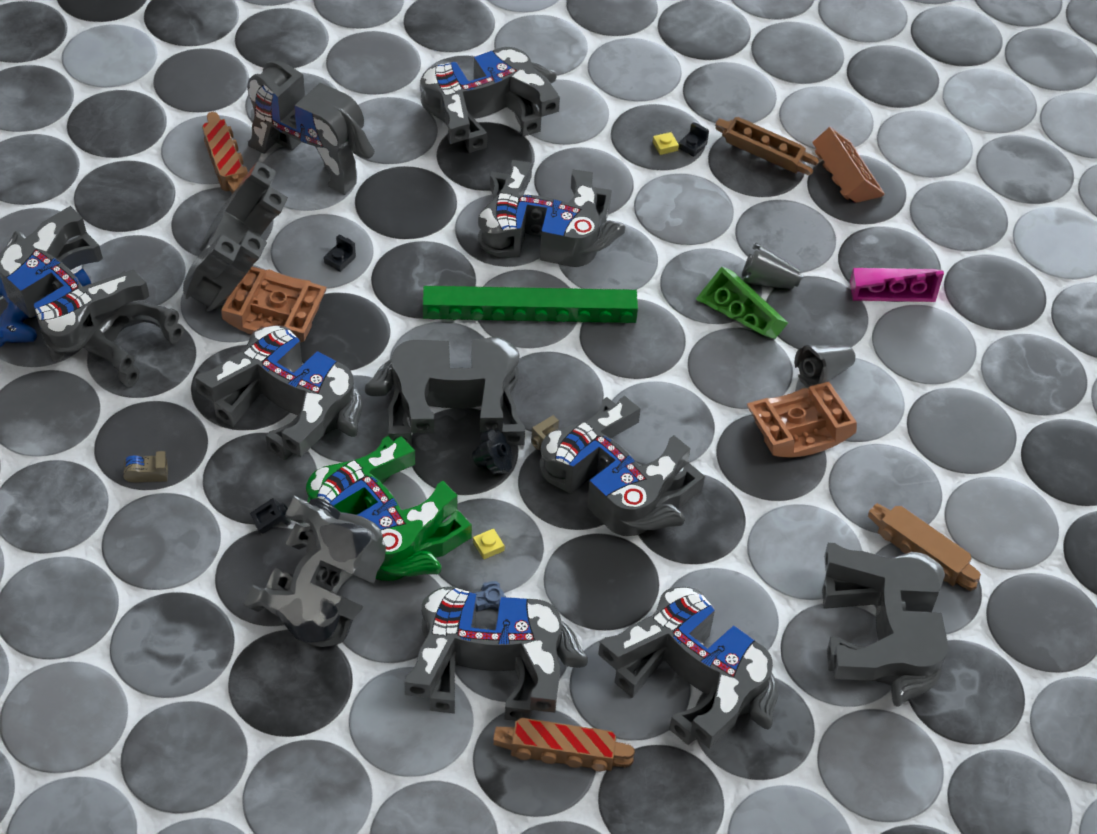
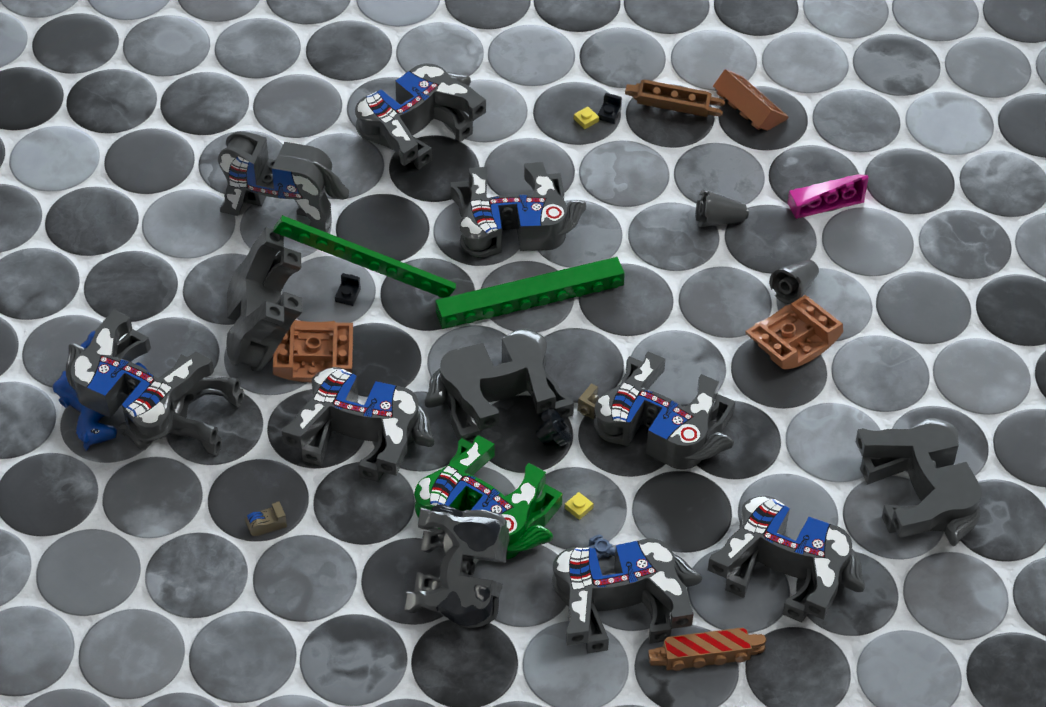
camera: 15 degrees left, 0 degrees up
(223, 152) = (206, 226): medium nougat hinge -> none
(270, 515) = (389, 531): black bracket -> none
(358, 220) = (364, 257): none -> green plate
(740, 302) = (705, 245): bright green wedge -> none
(915, 535) = (919, 405): medium nougat hinge -> none

